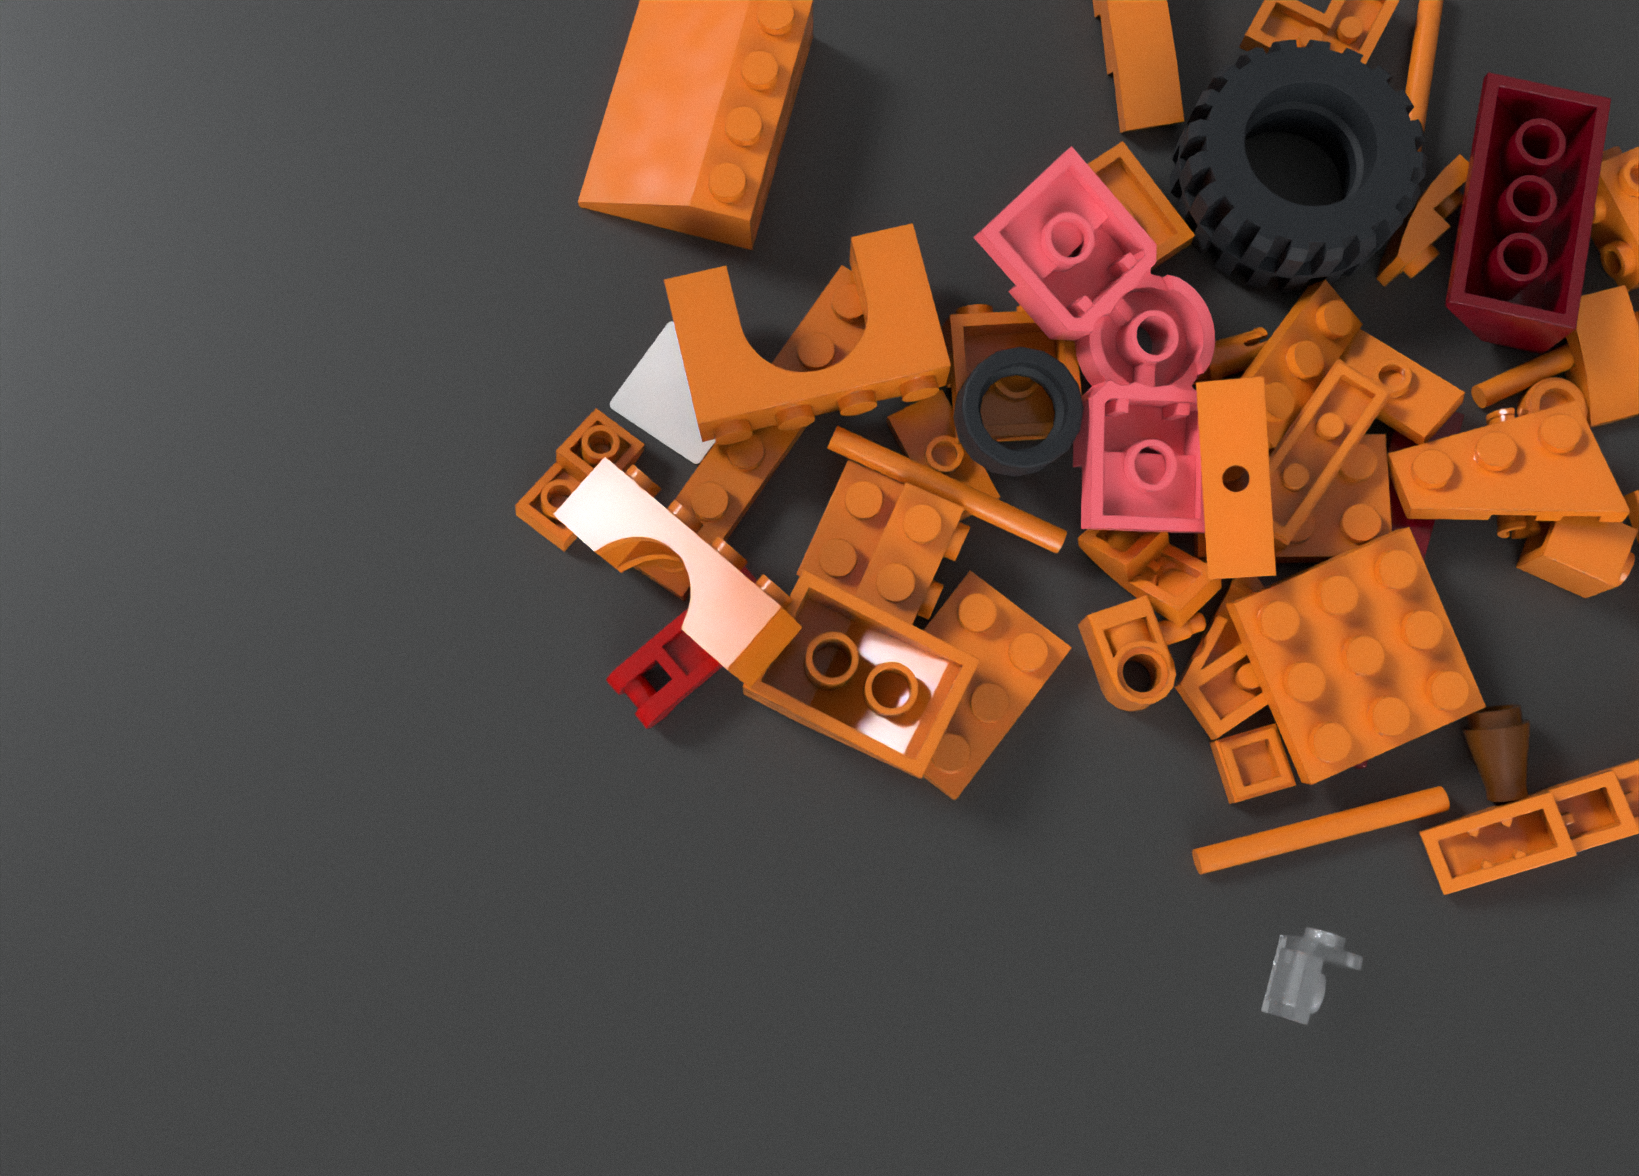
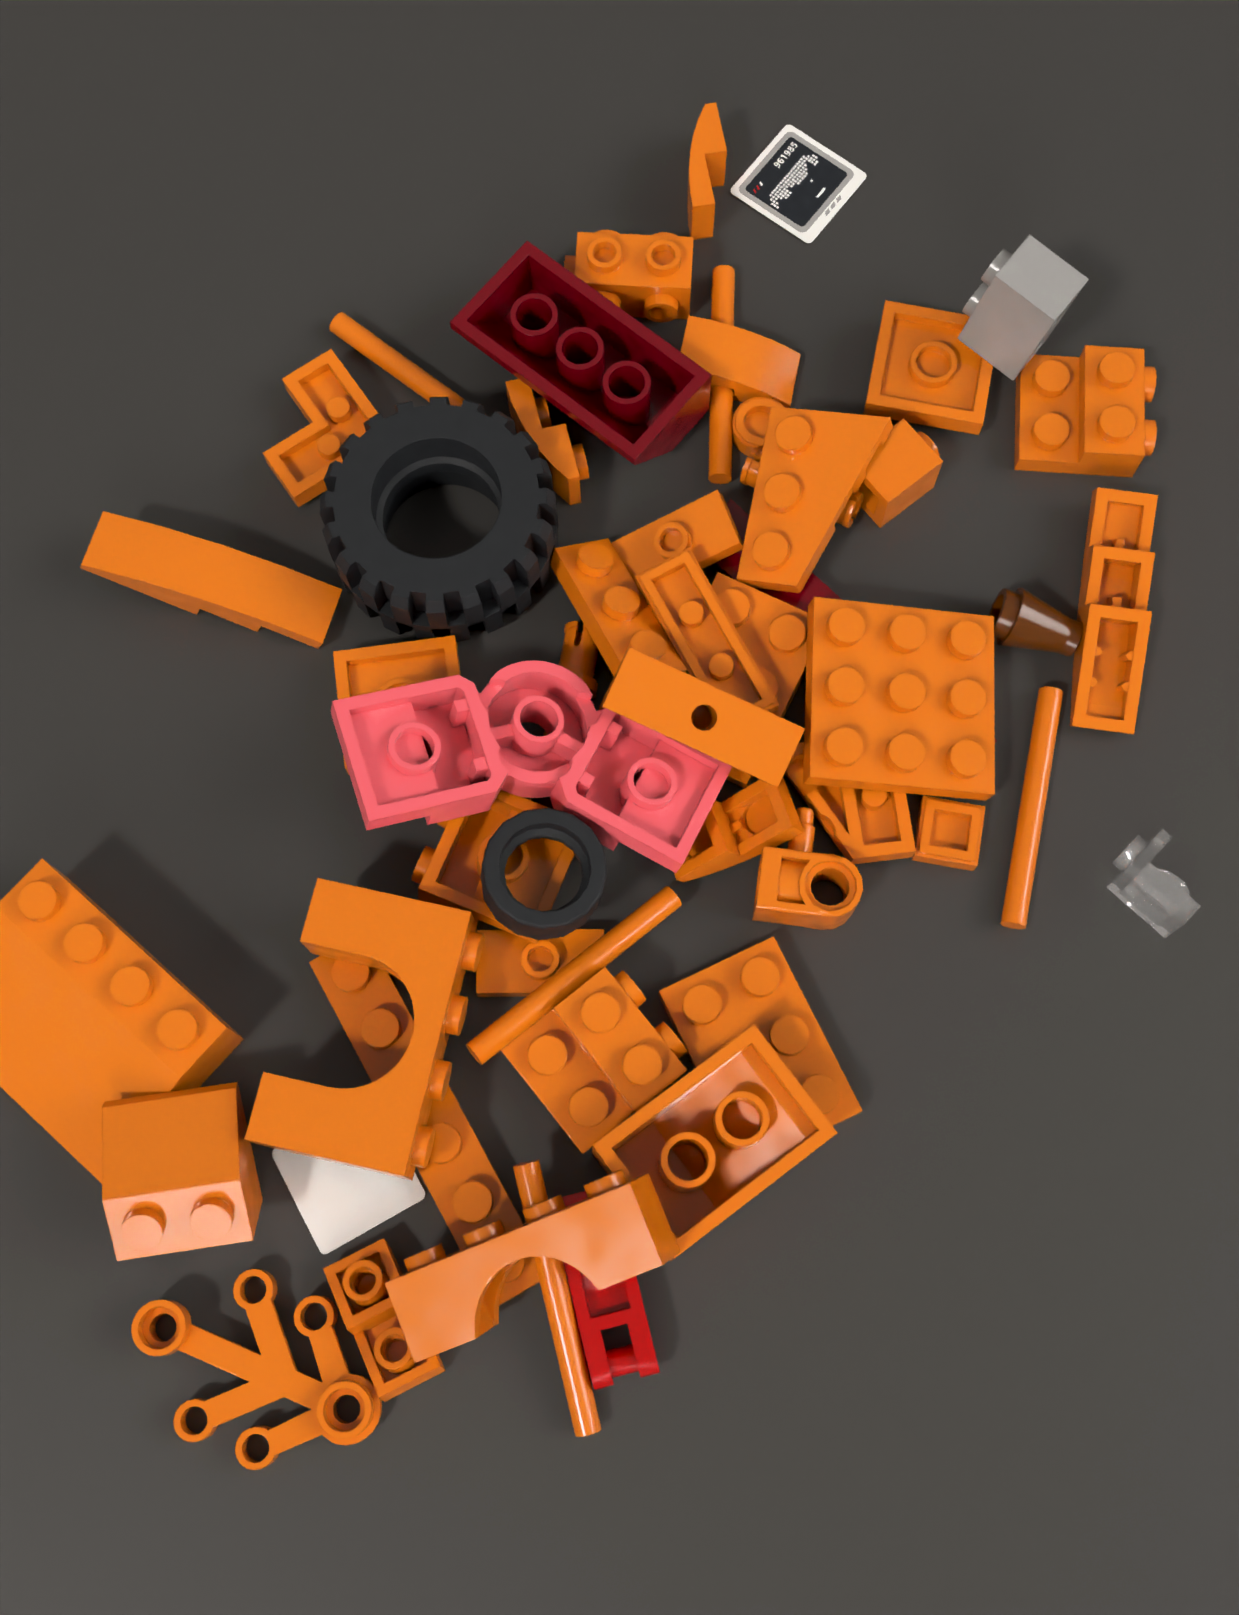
camera: 60 degrees left, 5 degrees down
(493, 409) = (269, 1374): none -> orange plant
(613, 247) = (178, 1172): none -> orange slope
(652, 621) = (561, 1314): none -> orange bar

